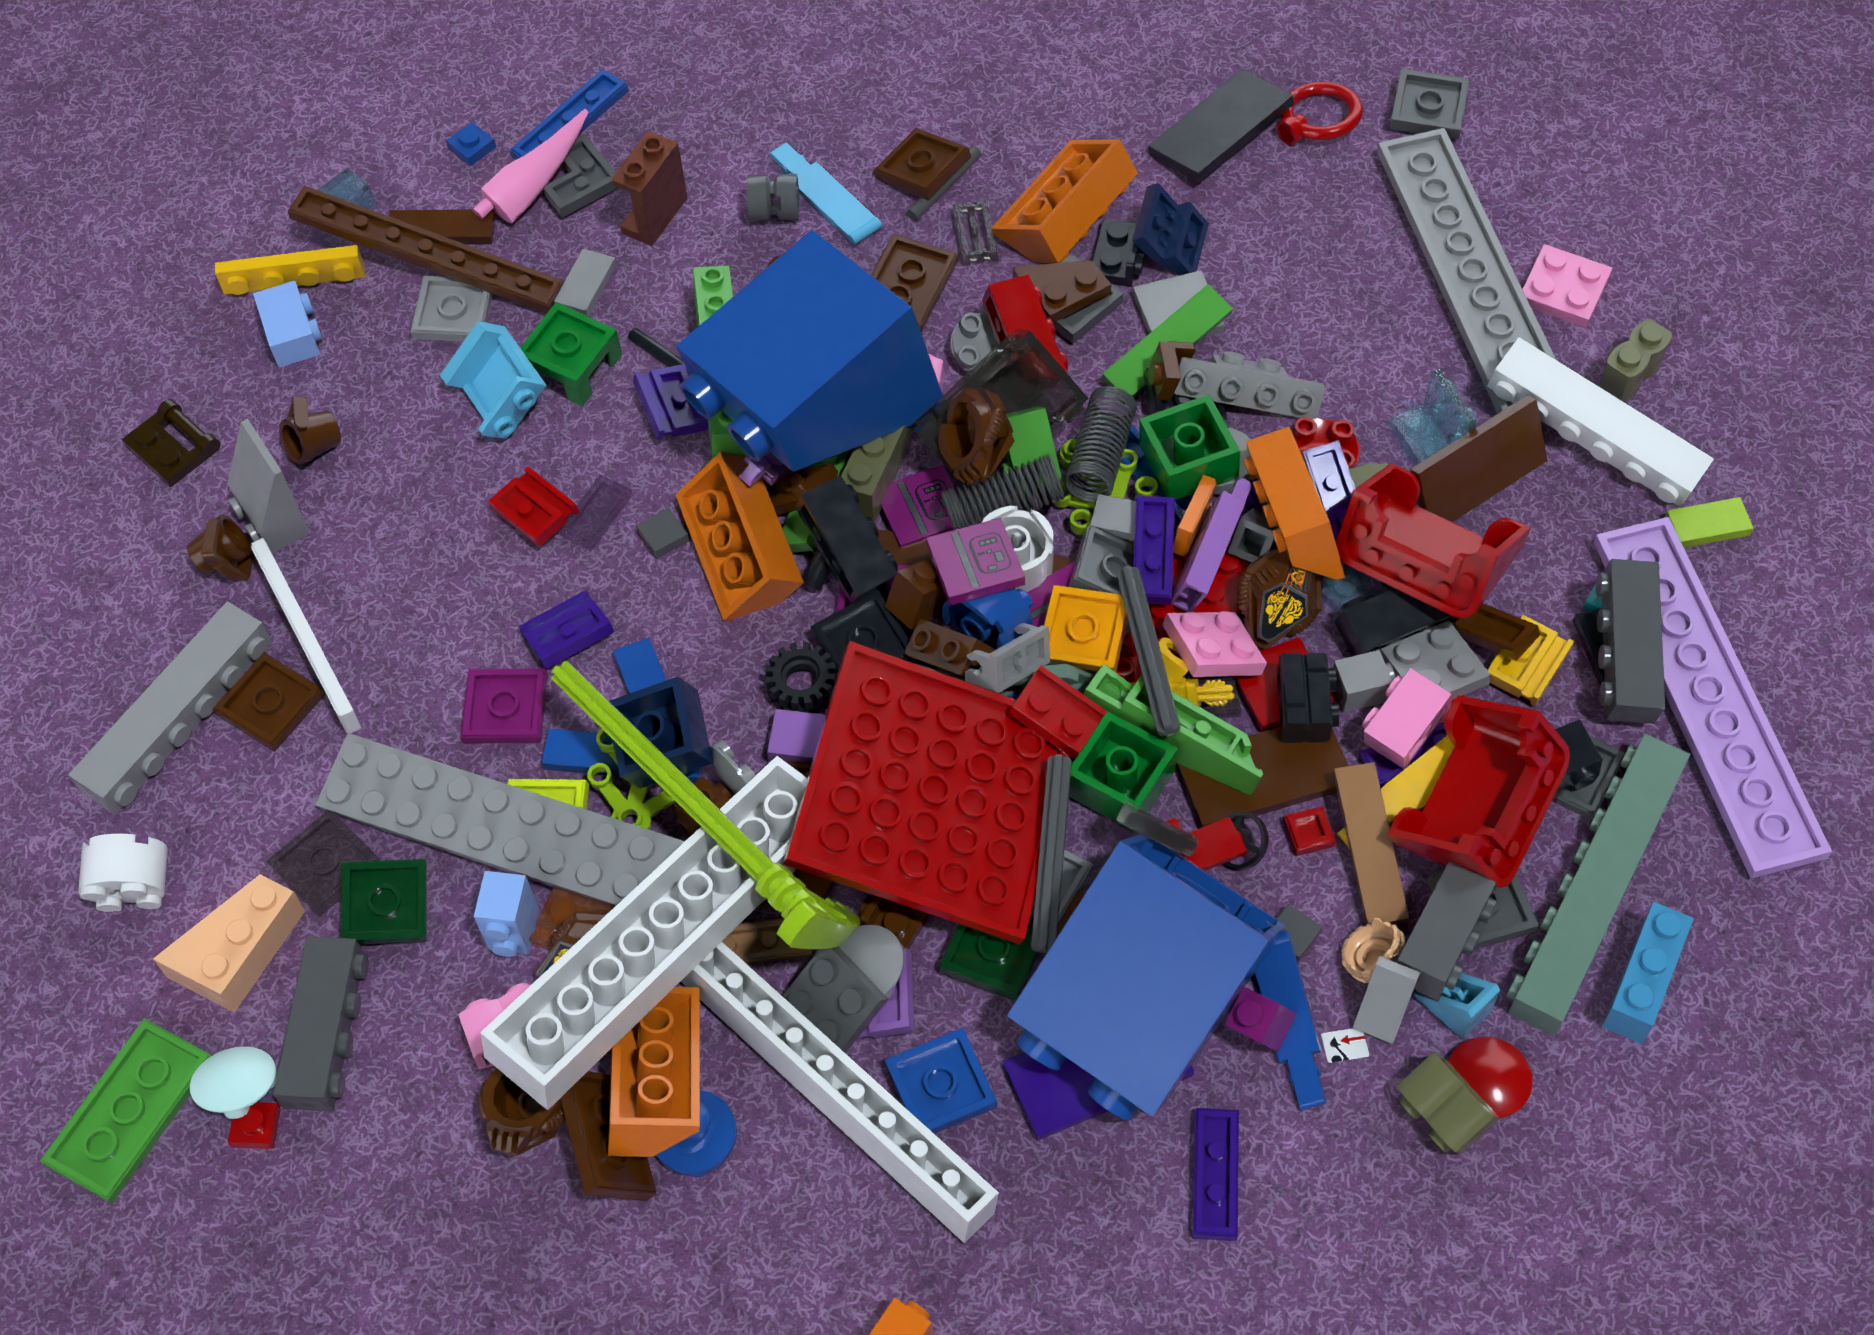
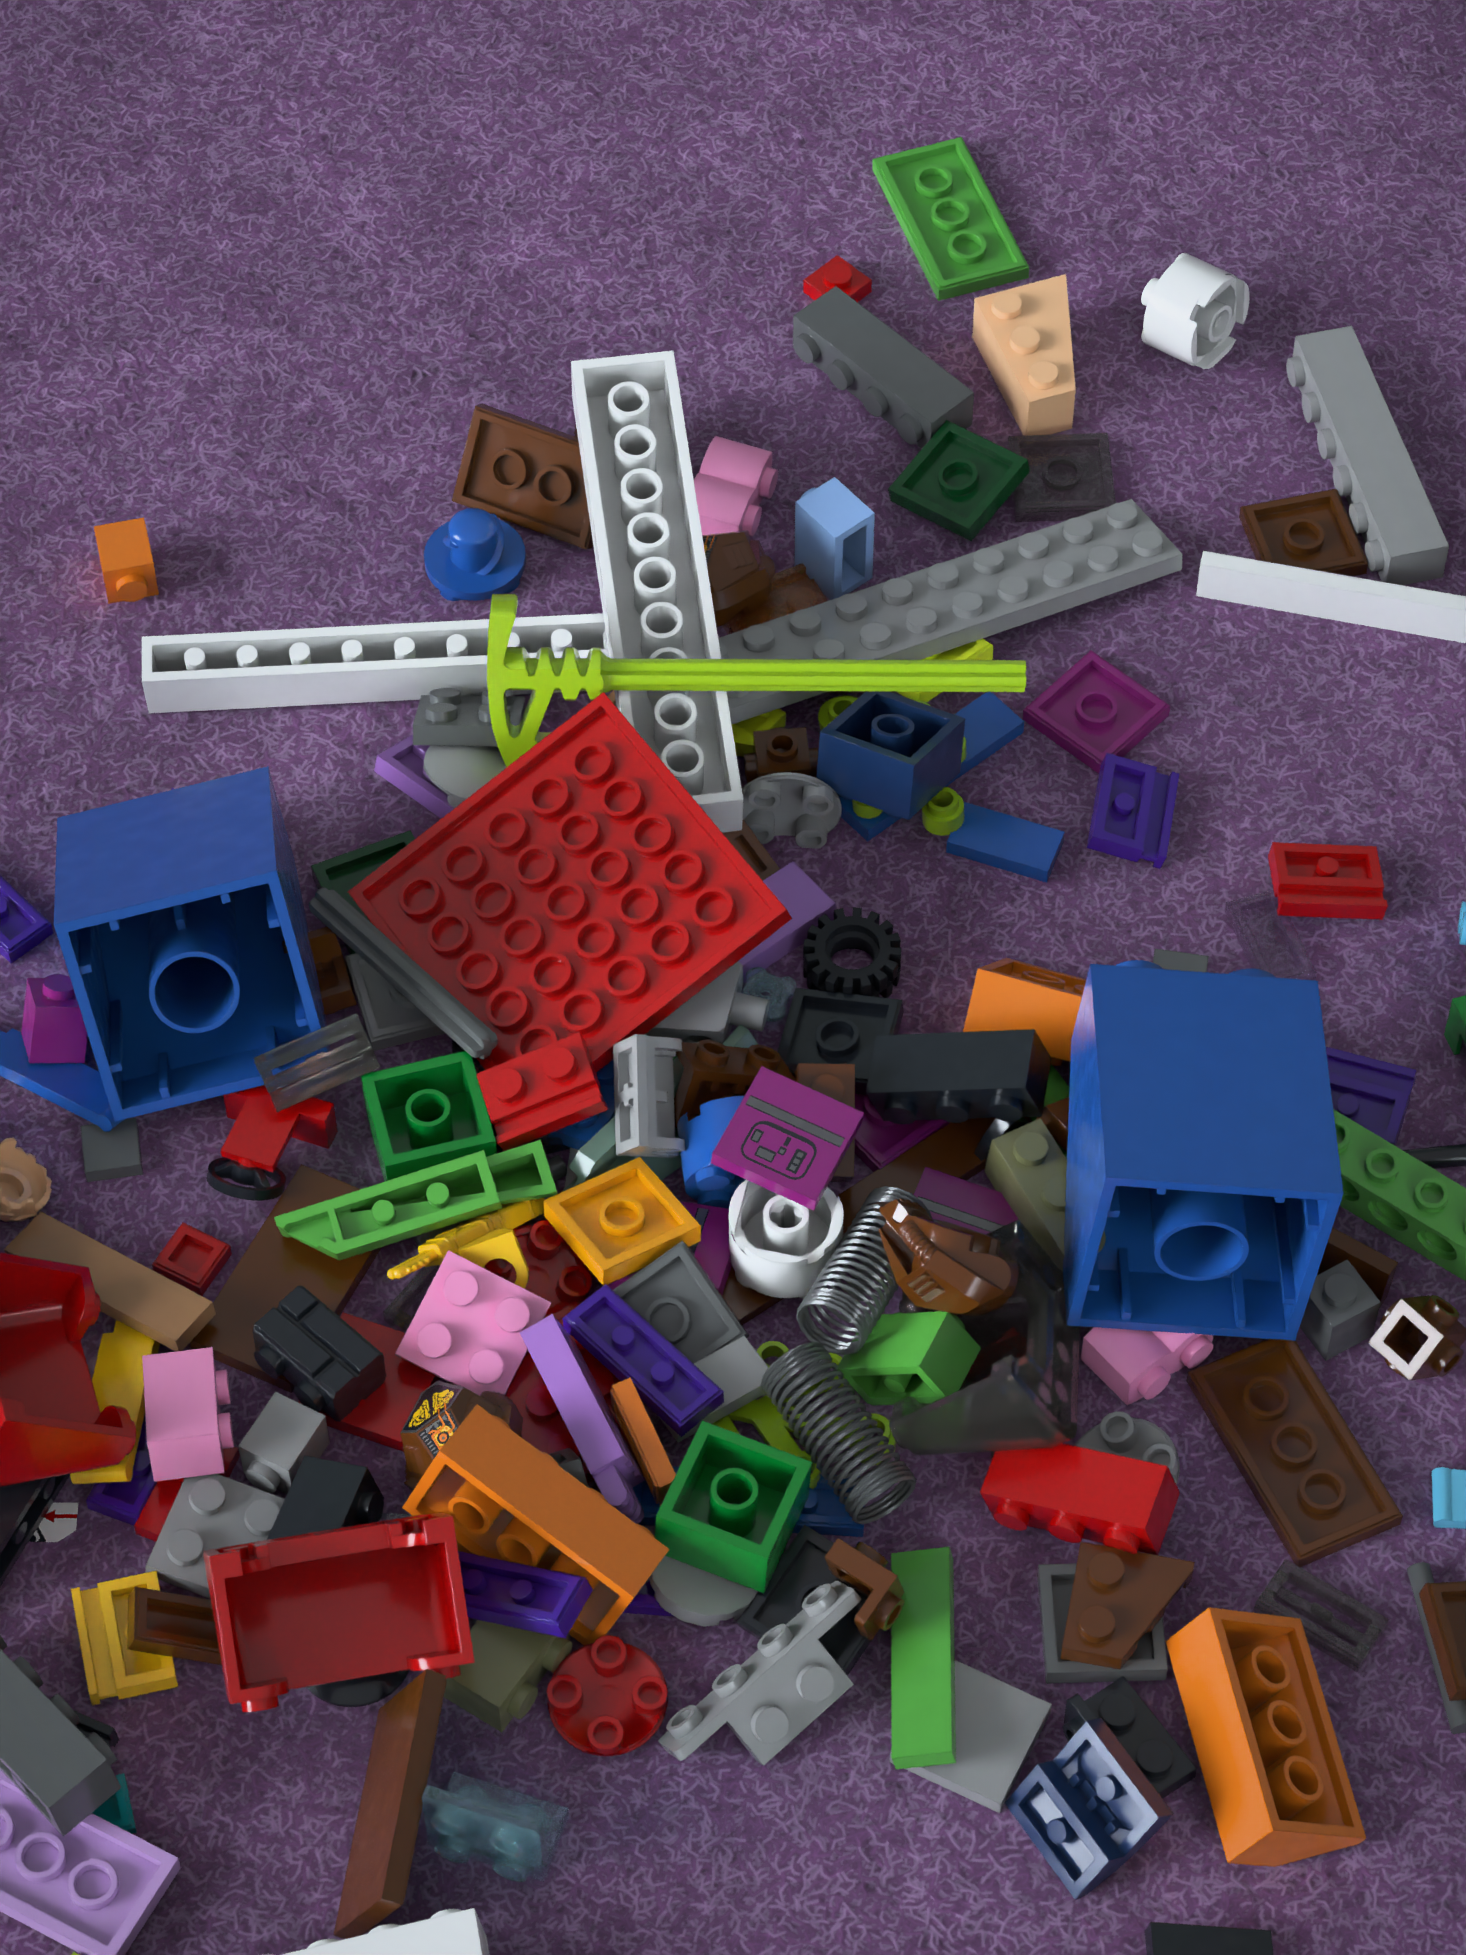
camera: 130 degrees right, 5 degrees down
(233, 1080) = (891, 281): light aqua dish -> none
(657, 1078) = (531, 517): orange slope -> none
(941, 1081) = (307, 752): blue plate -> none
(1148, 651) = (516, 1218): dark grey axle -> none

